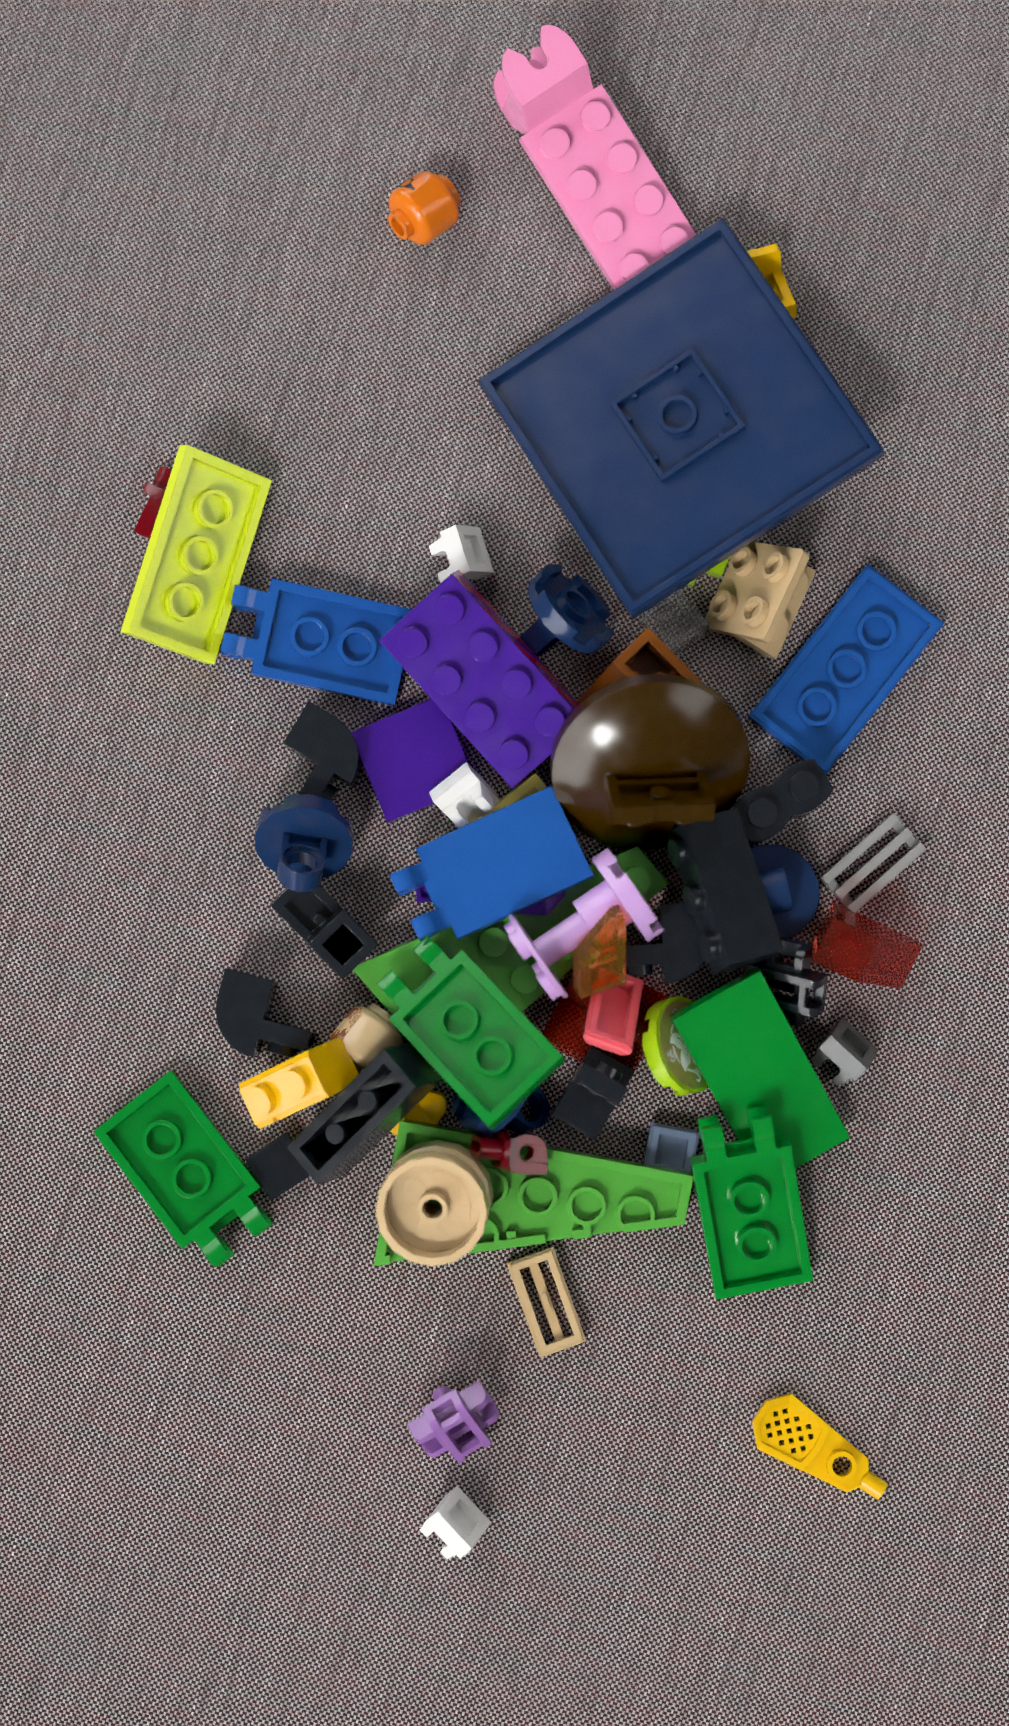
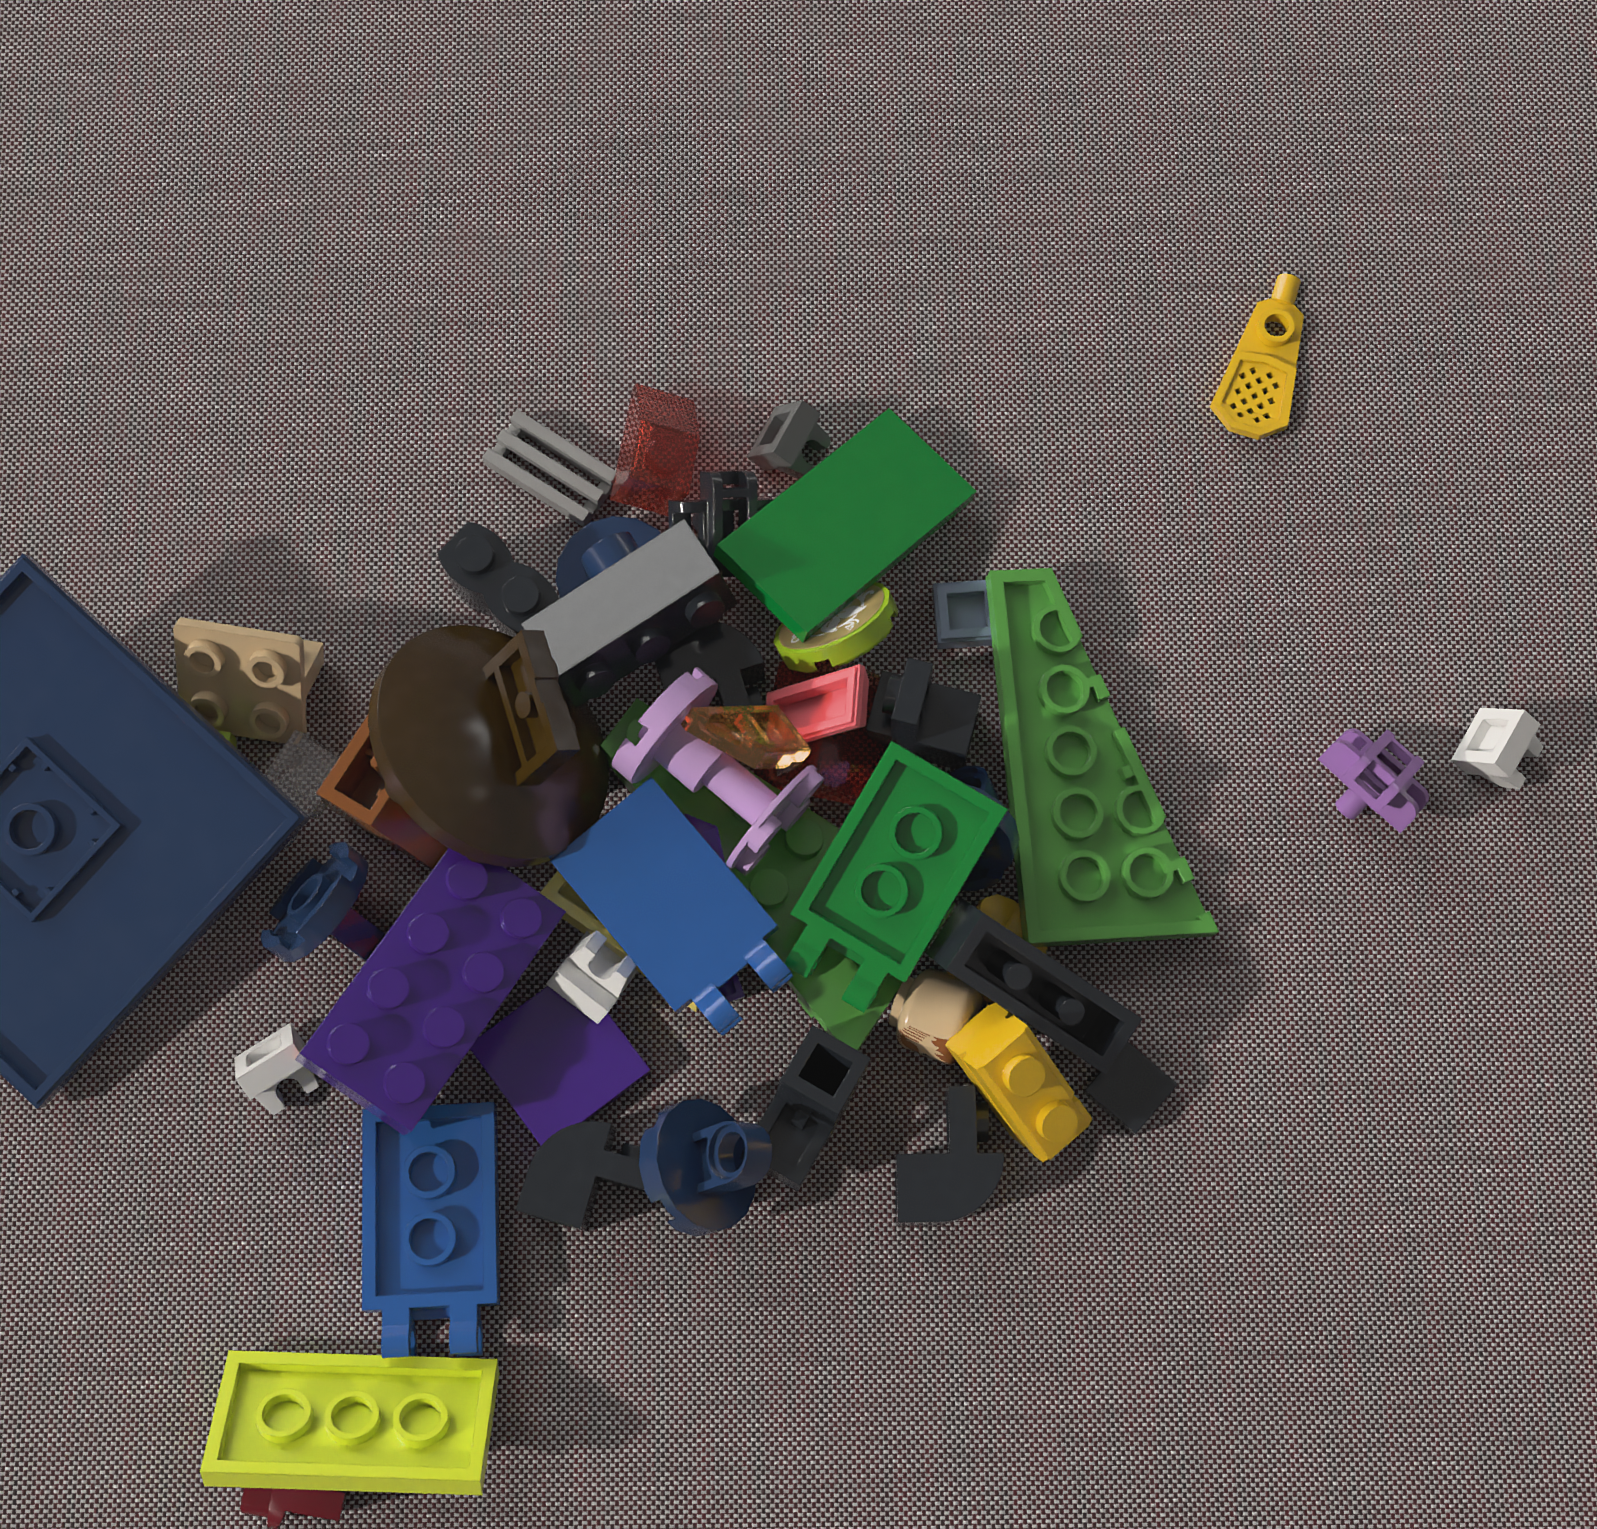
camera: 105 degrees left, 10 degrees down
(184, 1167) = (1169, 1212): green tile -> none
(426, 1231) = (1120, 862): tan wheel -> none
(504, 1151) = (1030, 796): dark red piece -> none
(531, 1261) = (1152, 743): tan tile -> none
(750, 1209) = (1006, 497): green tile -> none
(846, 669) = (316, 559): blue tile -> none

